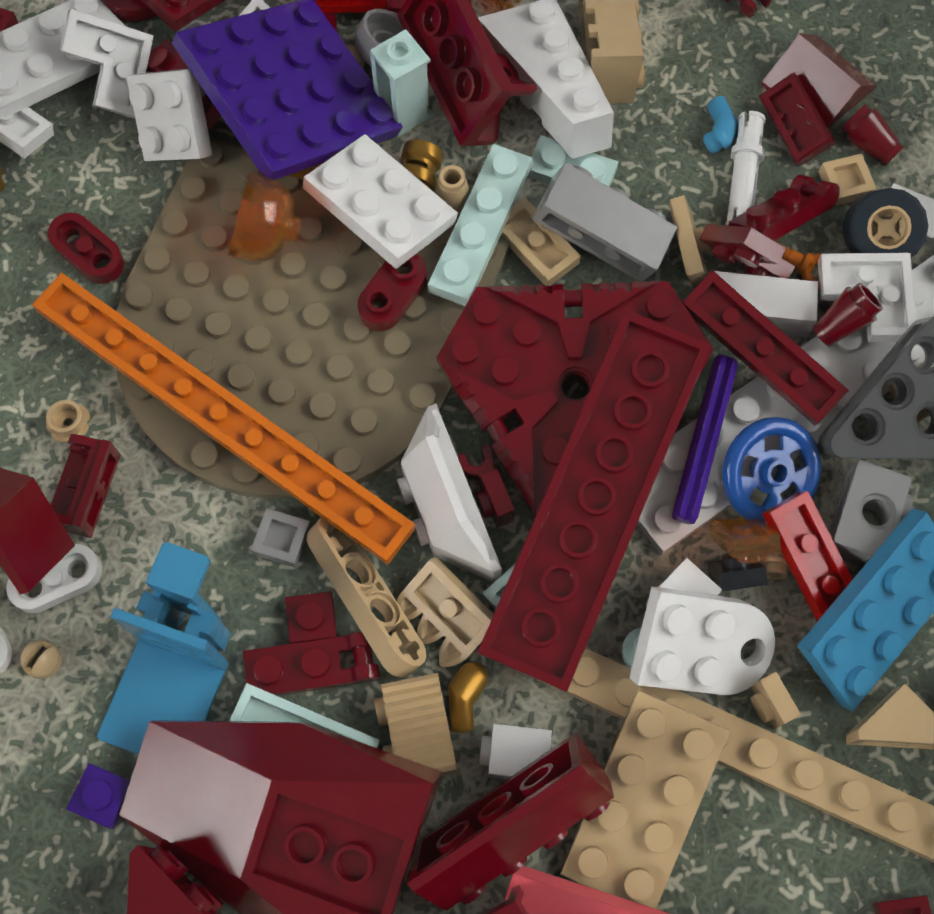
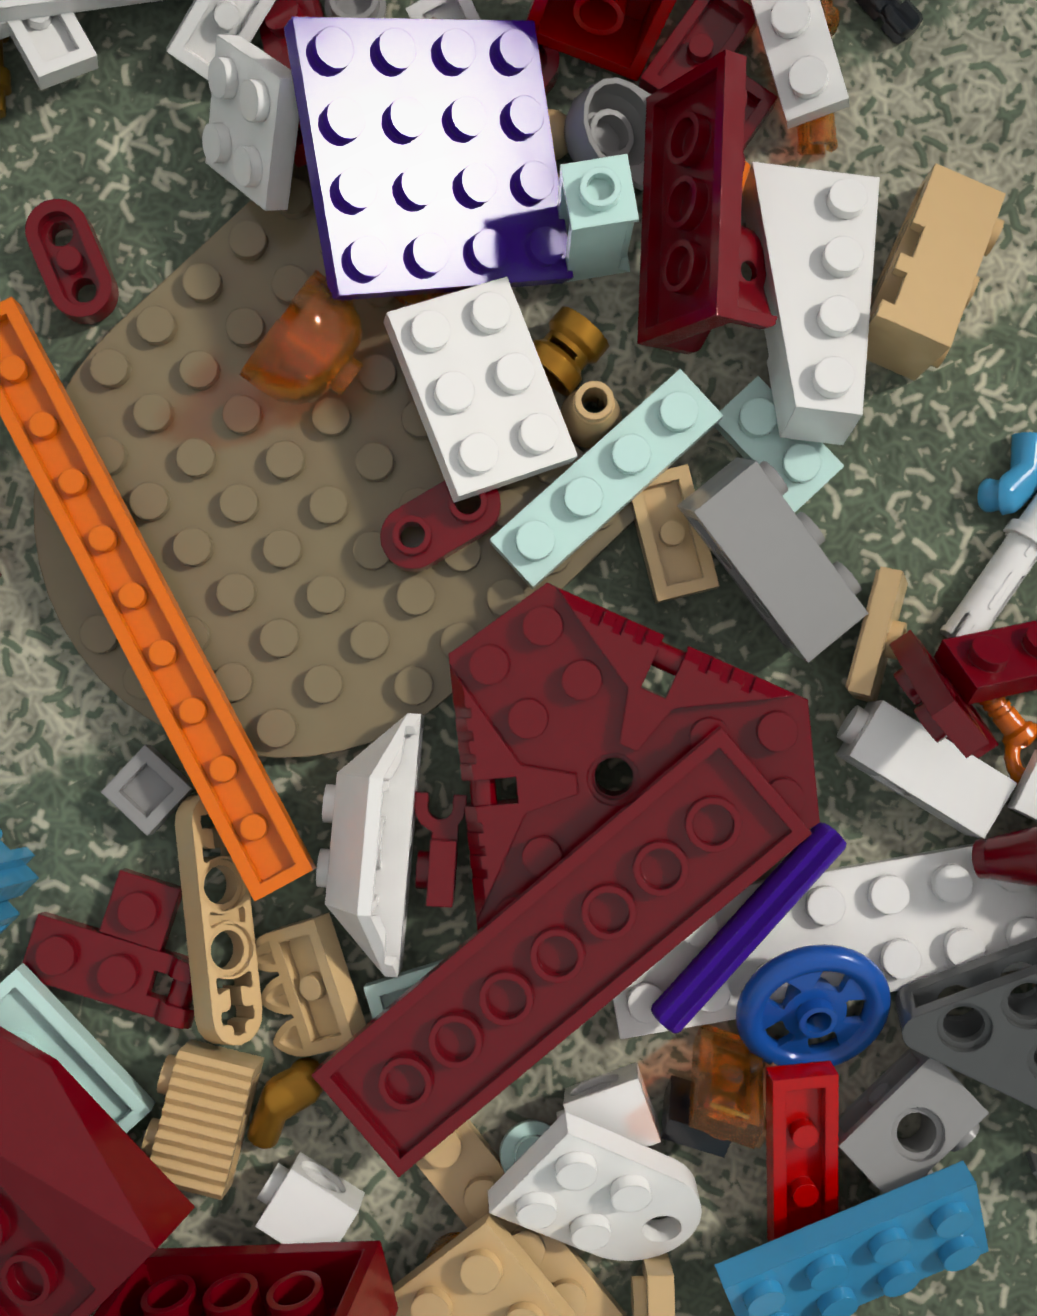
camera: 25 degrees right, 15 degrees up
(764, 348) = (889, 847): dark red plate -> none

